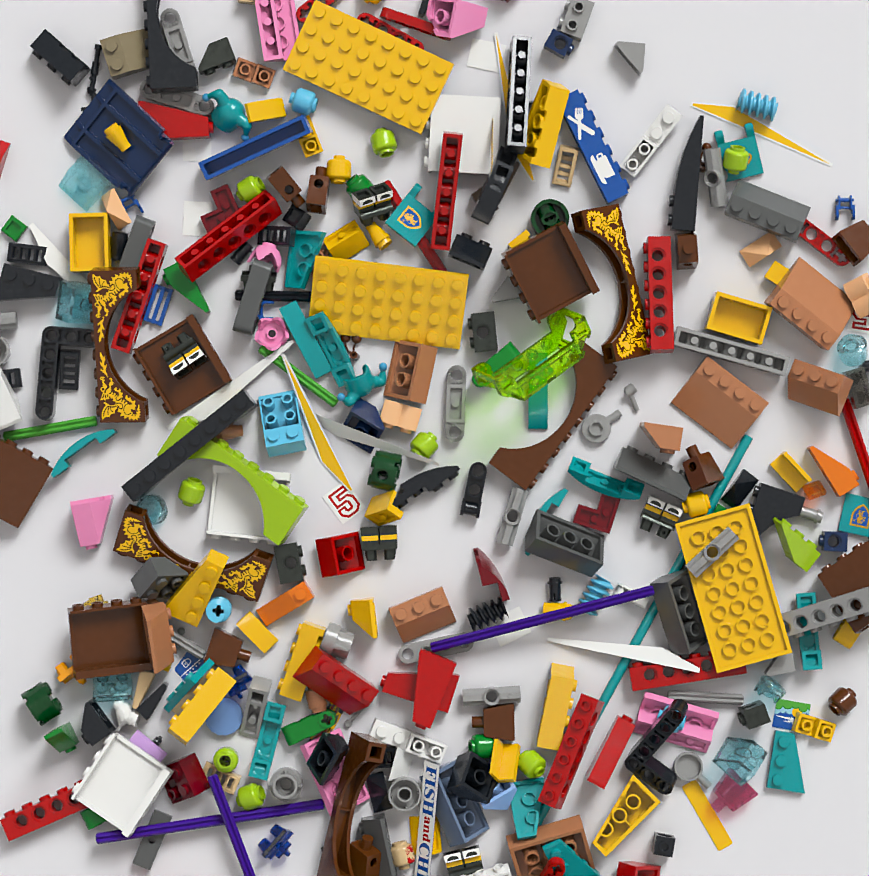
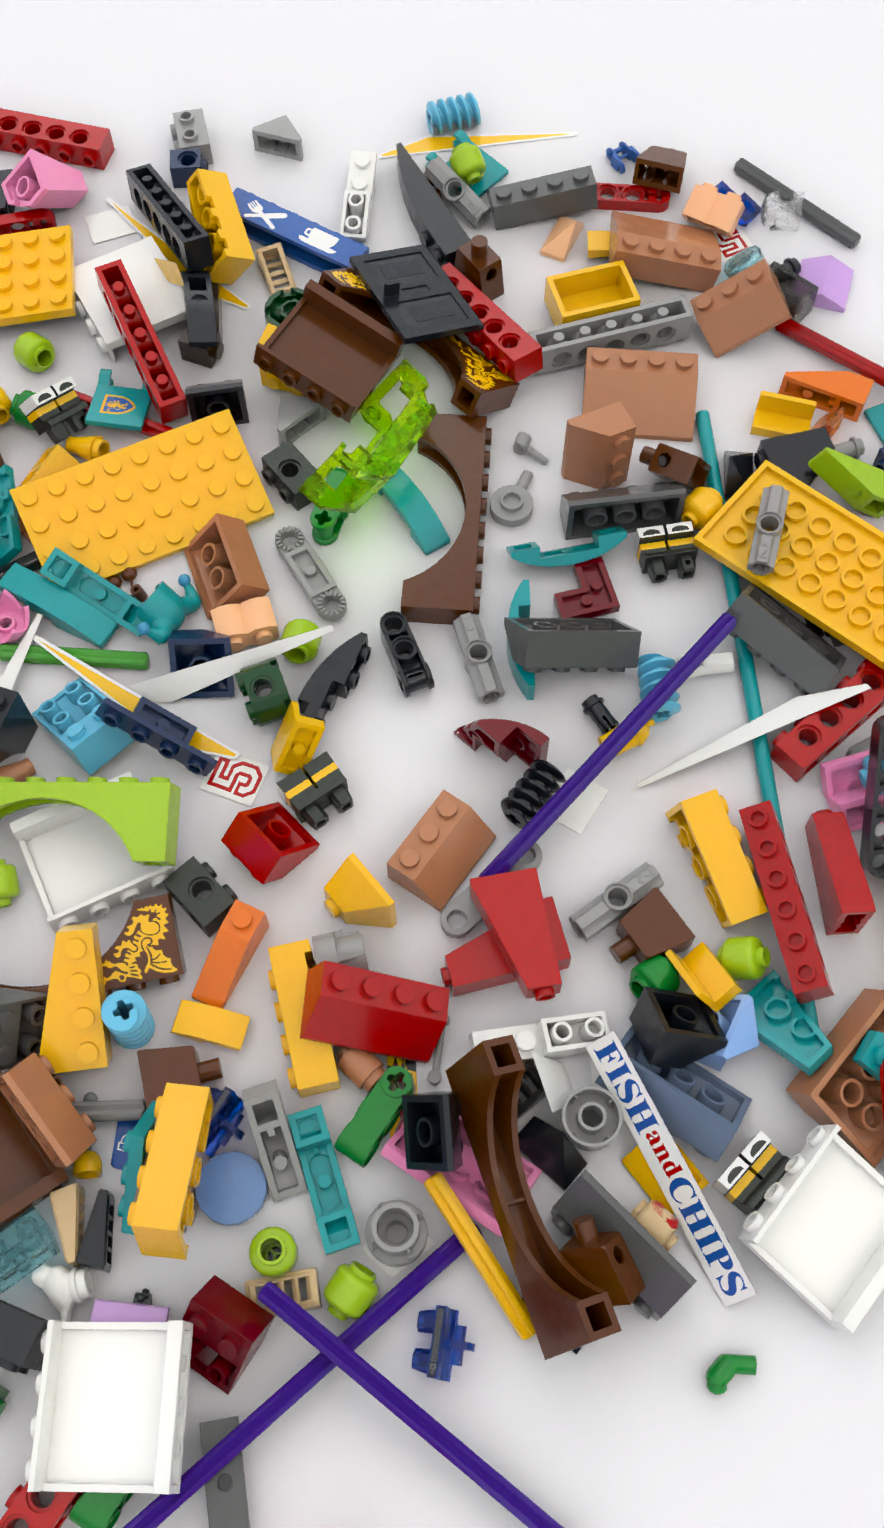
camera: 30 degrees left, 25 degrees down
(316, 819) = (480, 1254): none -> yellow axle
(319, 459) = (160, 730): none -> dark blue bracket
(629, 255) = (415, 294): none -> black door

